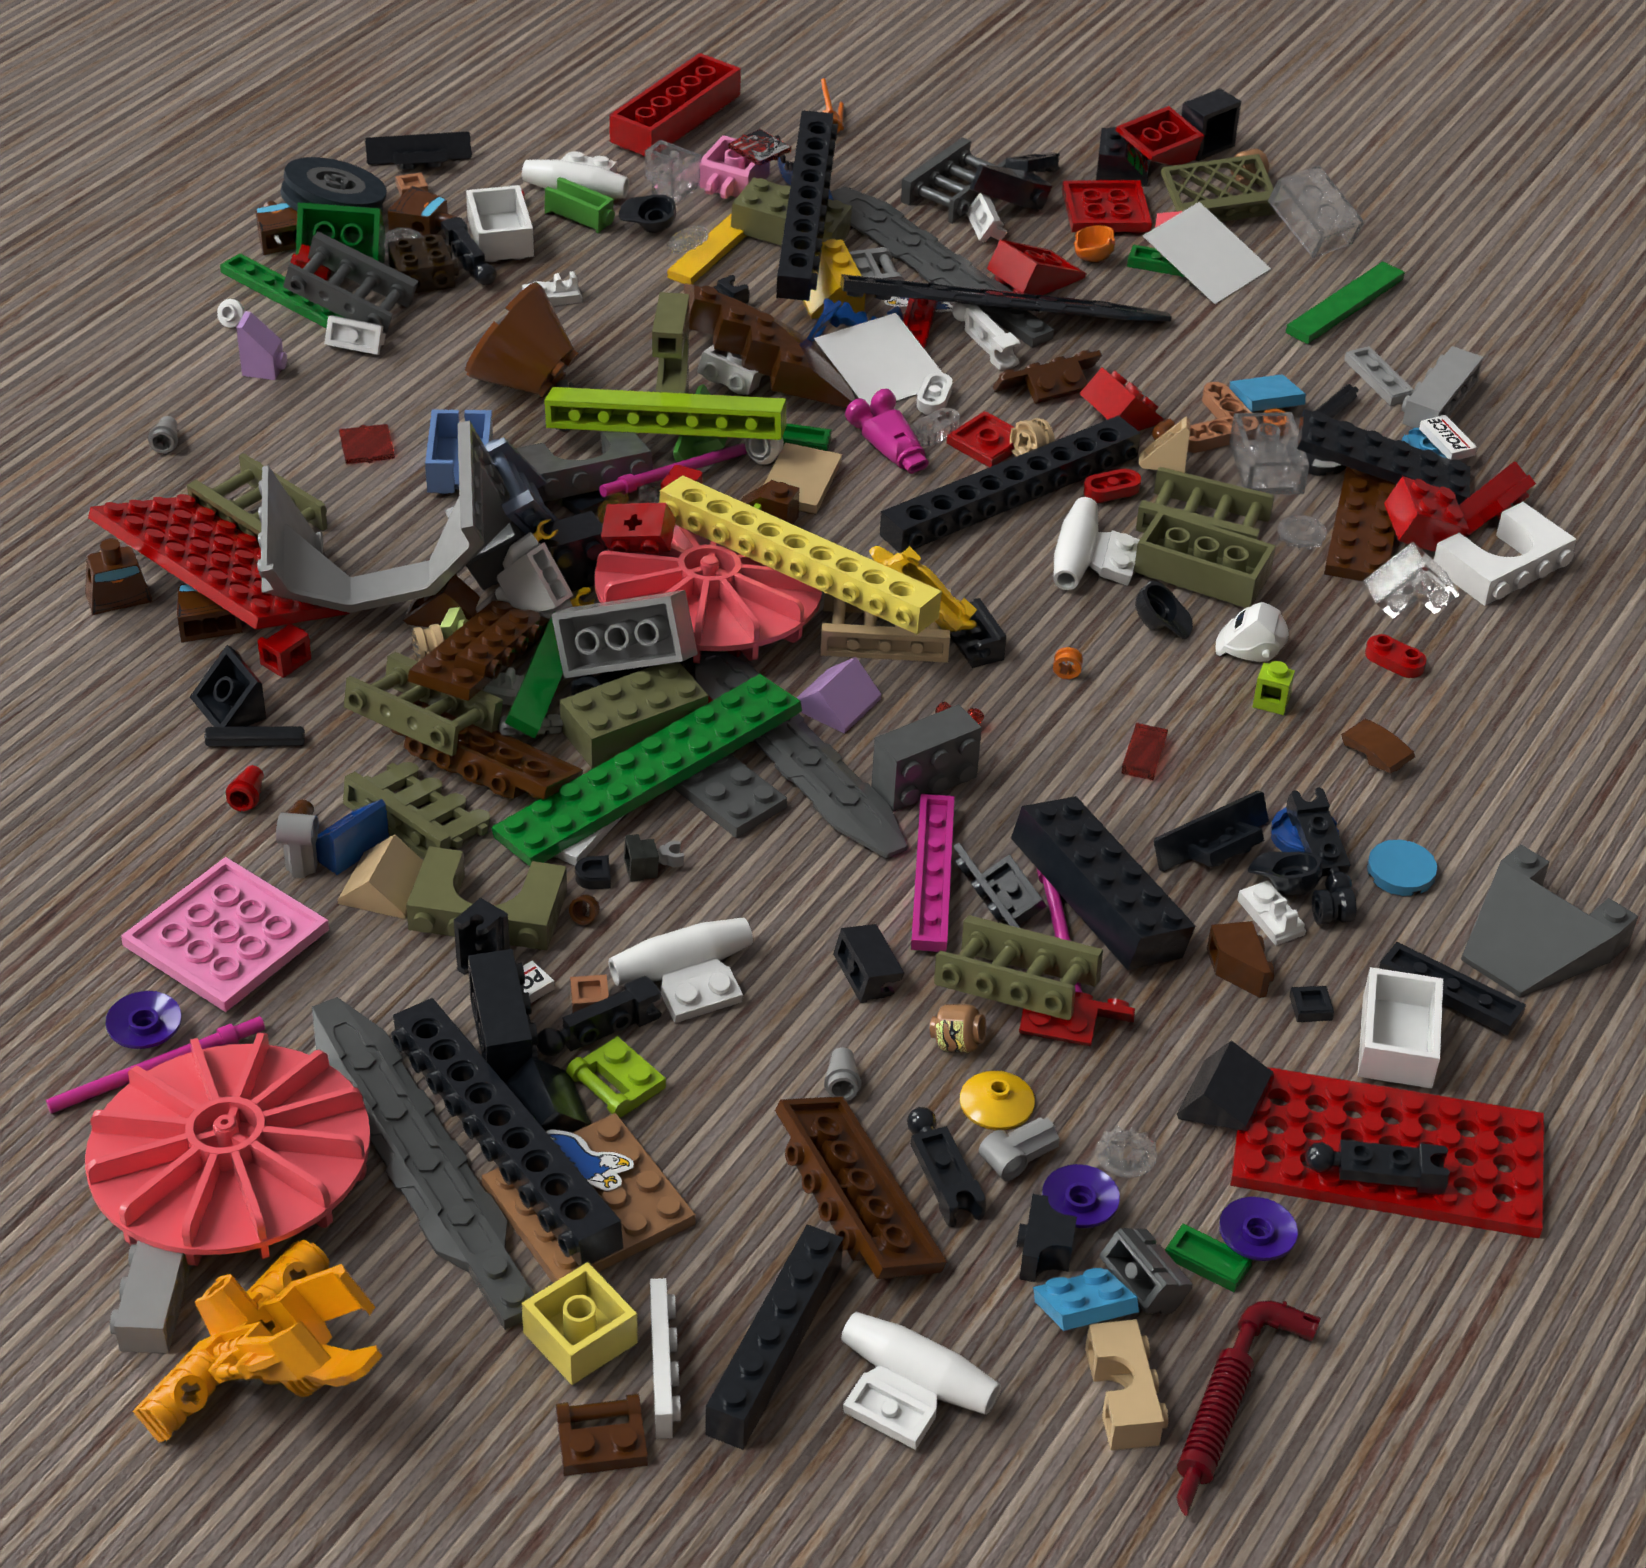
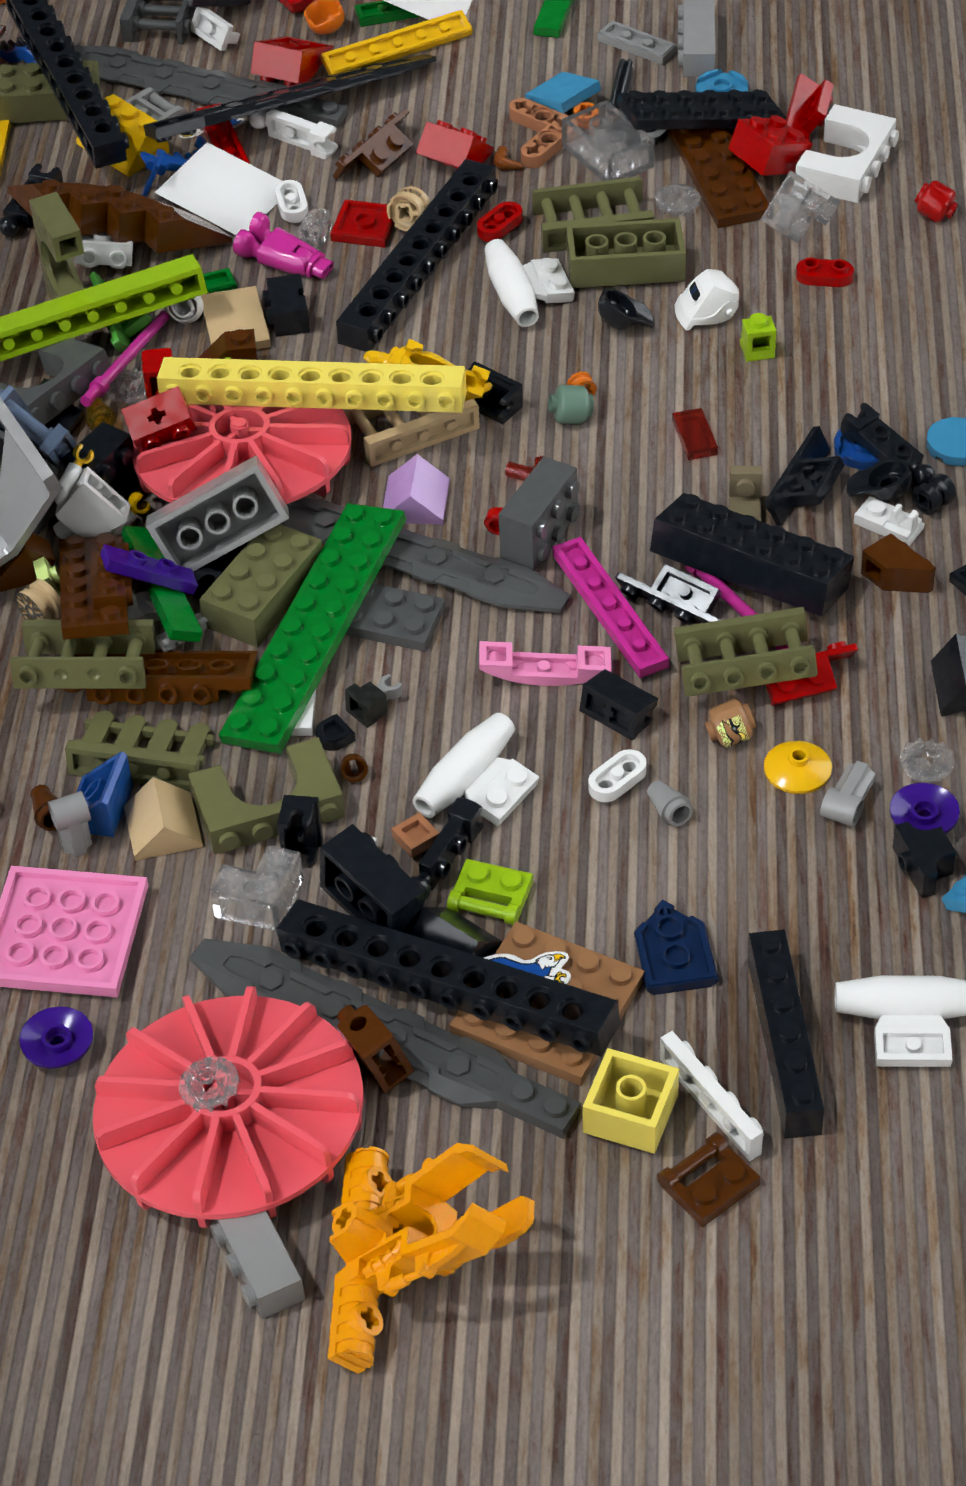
camera: 25 degrees left, 5 degrees up
(214, 1102) = (204, 1072): none -> clear gear
(225, 1036) = (135, 1017): dark pink bar -> none
(386, 1142) = (368, 1037): none -> reddish brown torso
(410, 979) = (261, 895): none -> clear brick
(531, 654) = (148, 569): none -> dark purple plate
(739, 1212) = (674, 952): none -> dark blue tile
(814, 1027) = (612, 778): none -> white plate
(824, 899) = (543, 668): none -> bright pink slope
(853, 480) = (287, 305): none -> black brick
(856, 1189) = (753, 887): reddish brown plate -> none
(944, 1167) = (805, 839): black plate -> none
(1043, 674) = (571, 404): none -> sand green head
(1145, 823) = (745, 490): none -> dark tan bracket
(1148, 292) = (398, 43): none -> yellow tile
(1169, 449) = (528, 169): tan slope -> none
(1380, 746) = (875, 351): reddish brown slope -> none
(1448, 438) = (734, 74): white tile -> none
(1560, 633) = (936, 201): none -> red head

